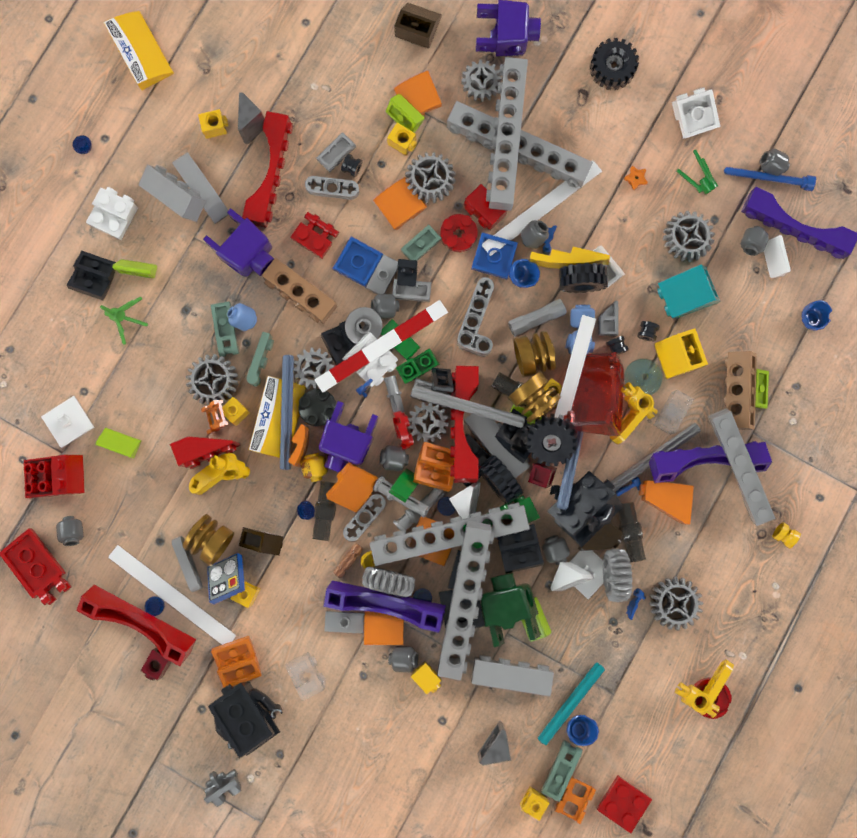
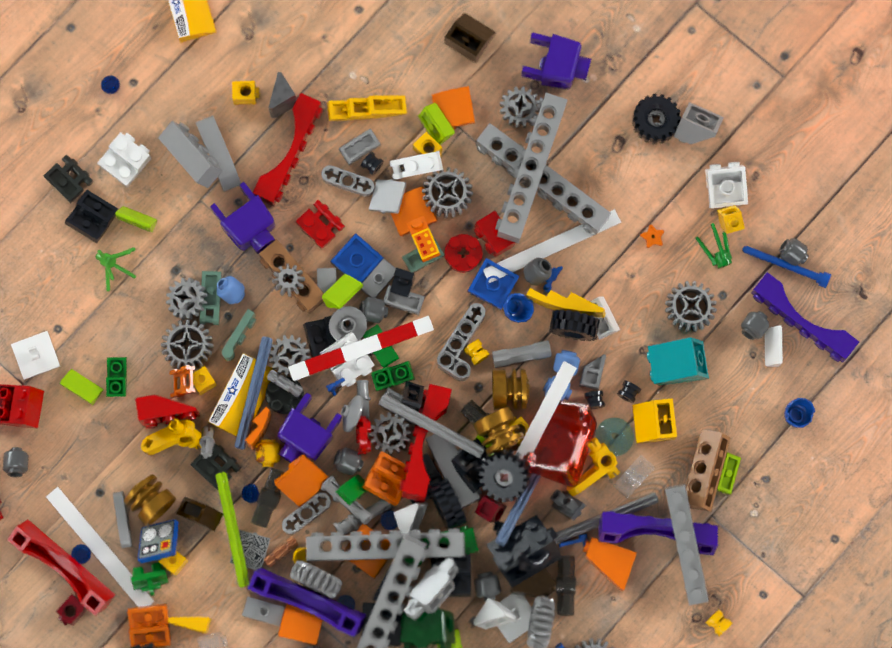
camera: 10 degrees right, 5 degrees down
(57, 248) = (64, 183): none -> pearl dark grey plate
(151, 425) = (116, 377): none -> green slope
(201, 344) = (187, 307): none -> light grey gear
(225, 619) = (151, 580): none -> green hips
(252, 470) = (207, 441): none -> light grey axle
(262, 496) = (209, 468): none -> pearl dark grey plate
(280, 650) = (197, 624): none -> yellow slope
(296, 550) = (232, 529): none -> lime axle
(297, 288) = (290, 273): none -> light grey gear
(315, 396) = (285, 383): none -> light grey axle
(318, 565) = (254, 549): none -> light grey piece
(334, 114) = (367, 108): none -> yellow slope
(334, 289) = (326, 278): none -> light grey tile
(350, 295) = (341, 292): none -> lime slope
(373, 193) = (387, 196): none -> piece
(387, 411) = (352, 413): none -> light grey dish
(395, 156) = (417, 165): none -> white plate
(417, 226) = (423, 239): none -> orange slope
(493, 325) = (476, 352): none -> yellow wheel
(506, 569) = (432, 589): none -> light grey hinge
(615, 453) = (567, 504): none -> dark grey hips
(655, 61) = (697, 125): none -> light grey slope
(708, 143) = (731, 219): none -> yellow brick

